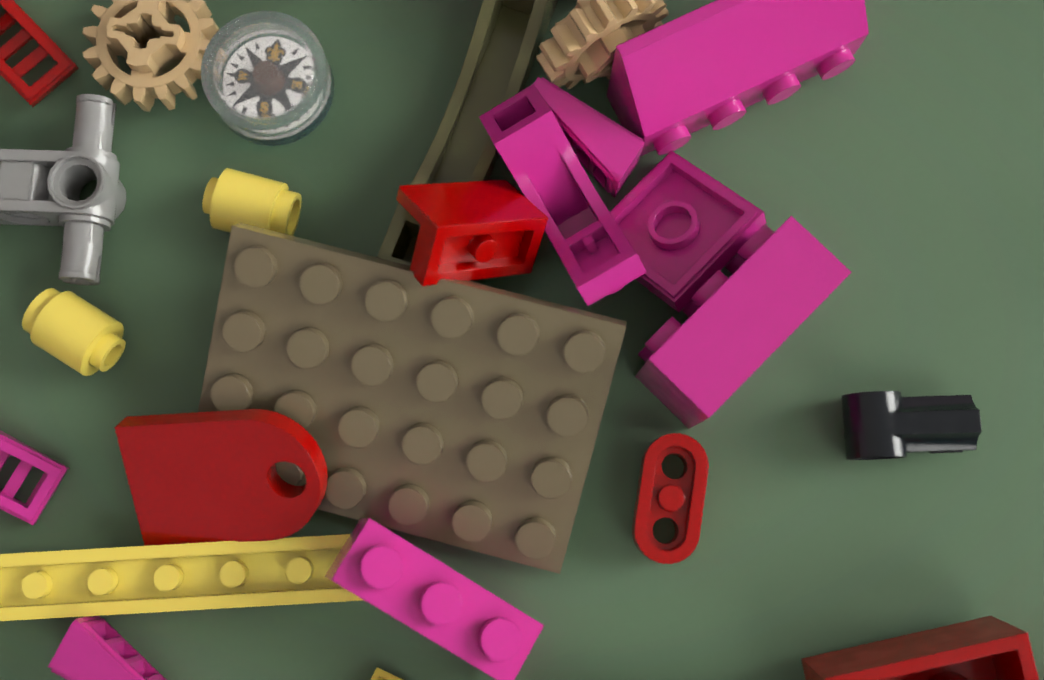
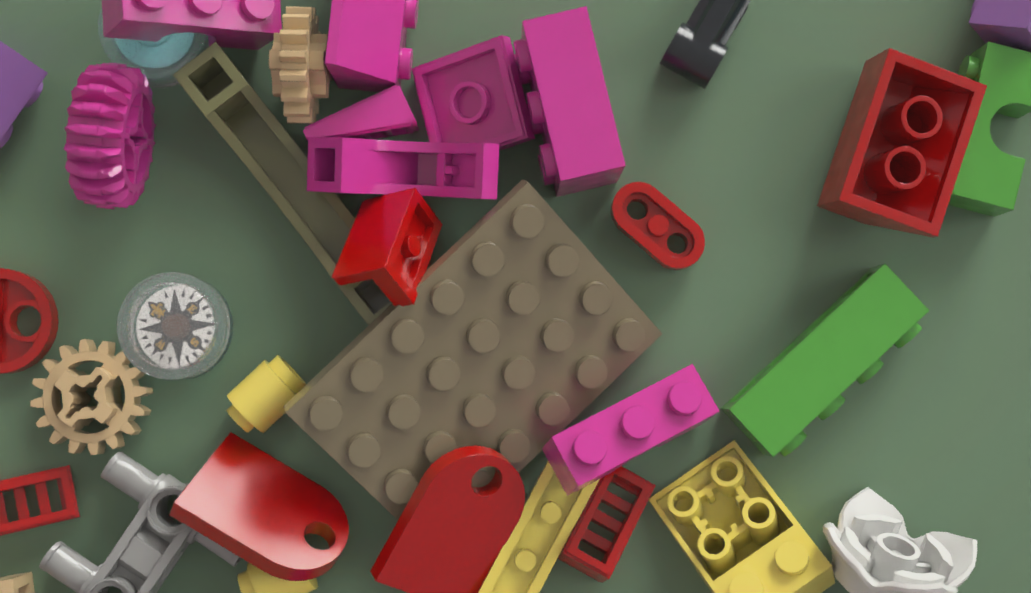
camera: 65 degrees left, 5 degrees up
(128, 267) = (263, 512): none -> red tile
(300, 663) = (581, 561): none -> red slope

